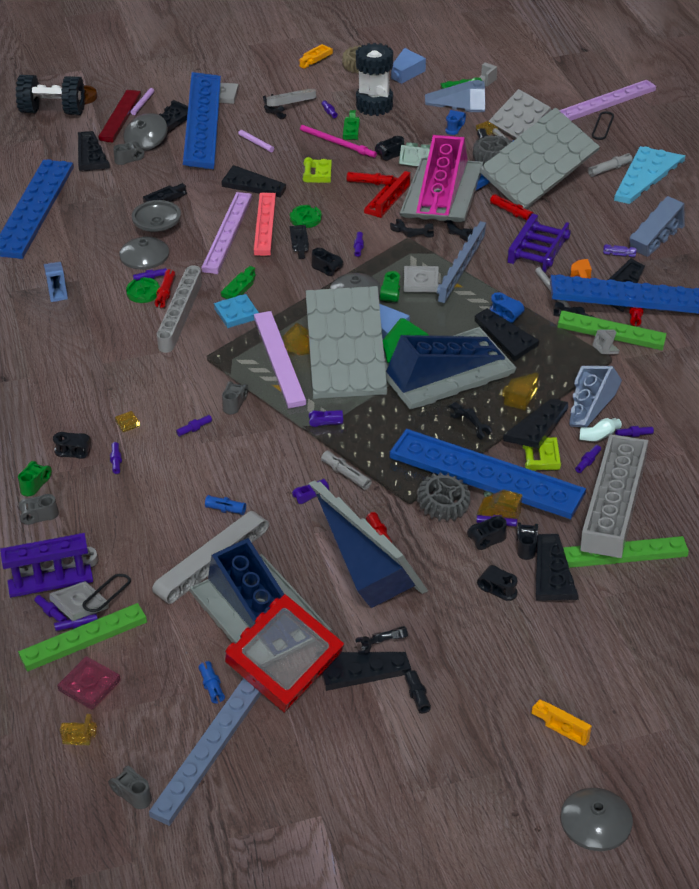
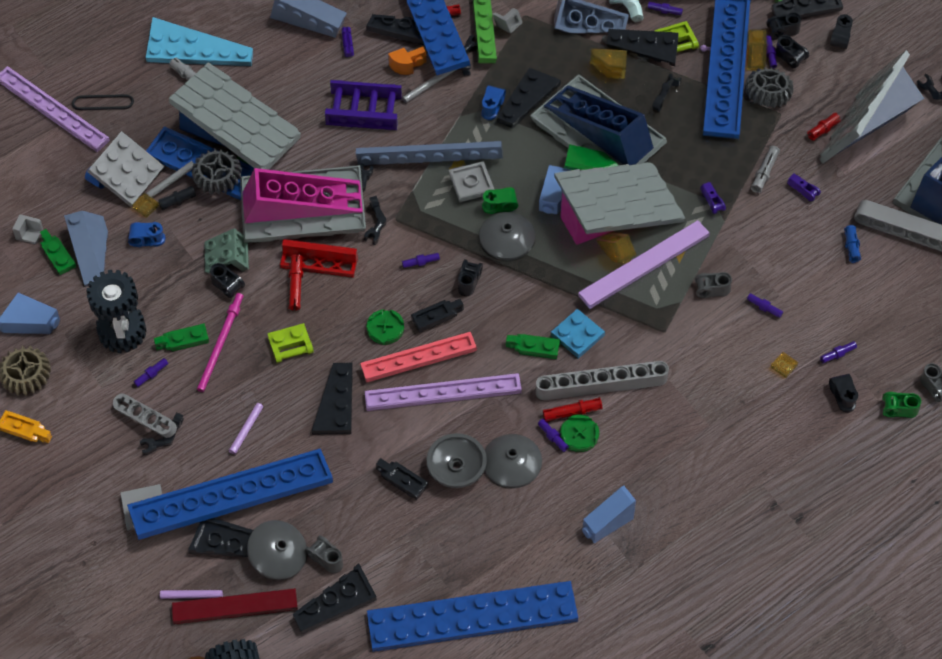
camera: 110 degrees left, 15 degrees up
(516, 209) = (308, 137): red pin -> none

